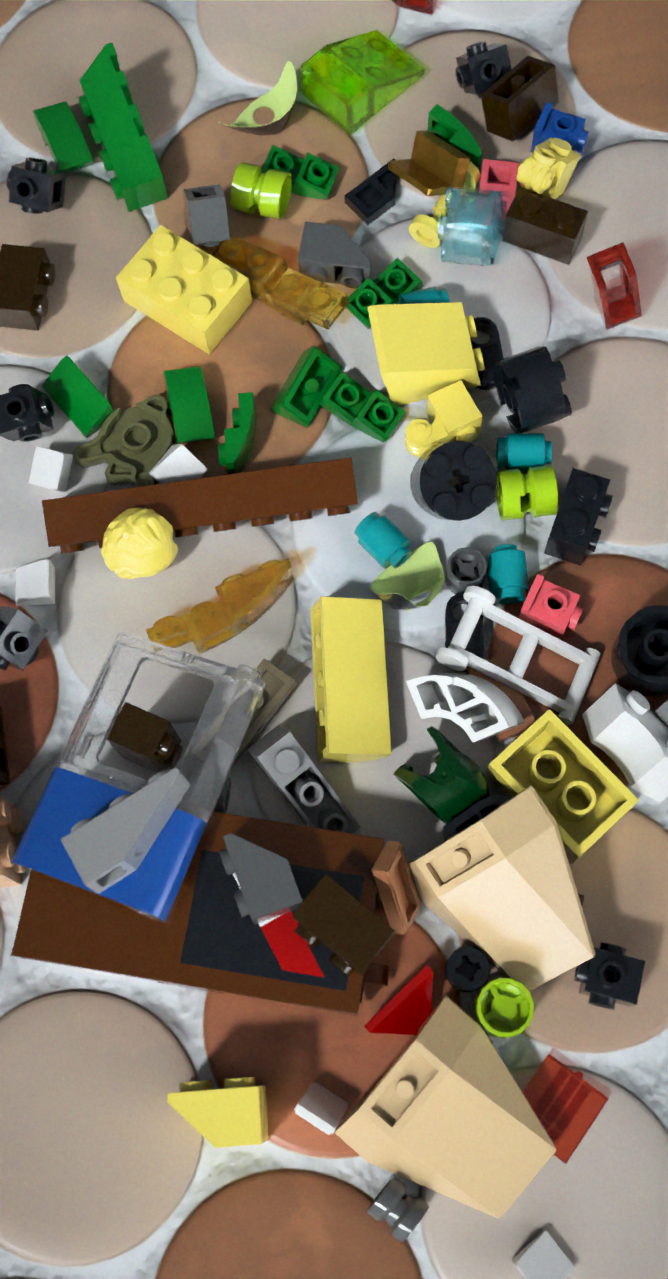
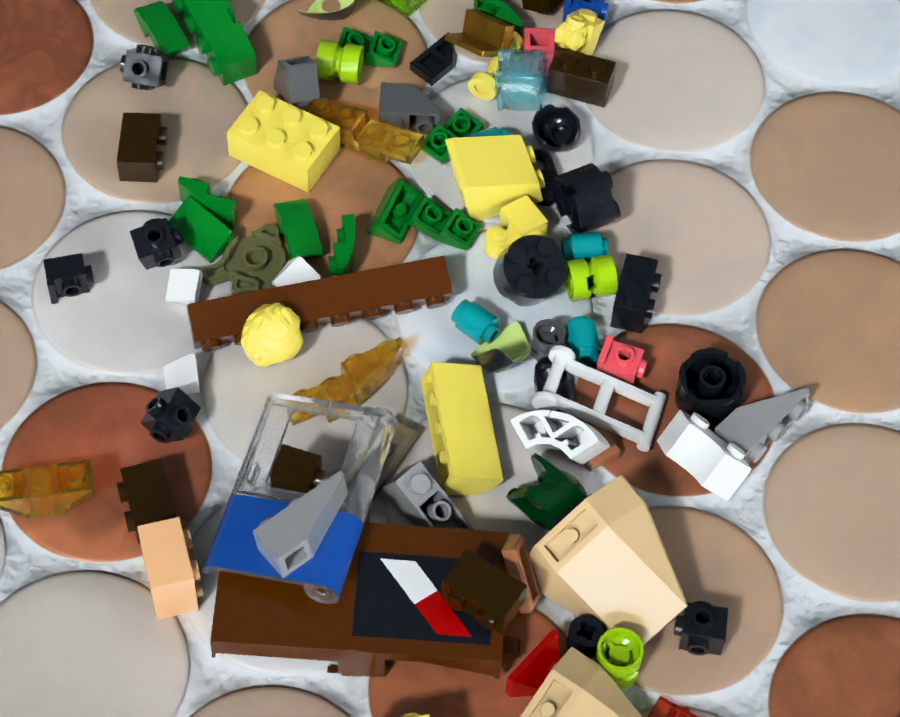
camera: 15 degrees left, 15 degrees down
(98, 370) = (219, 206): none -> green slope
(264, 880) = (414, 561): dark grey slope -> none
(507, 292) = (556, 128): none -> black hair
(569, 780) = (669, 492): light yellow brick -> none
(615, 285) = (644, 116): clear red window -> none

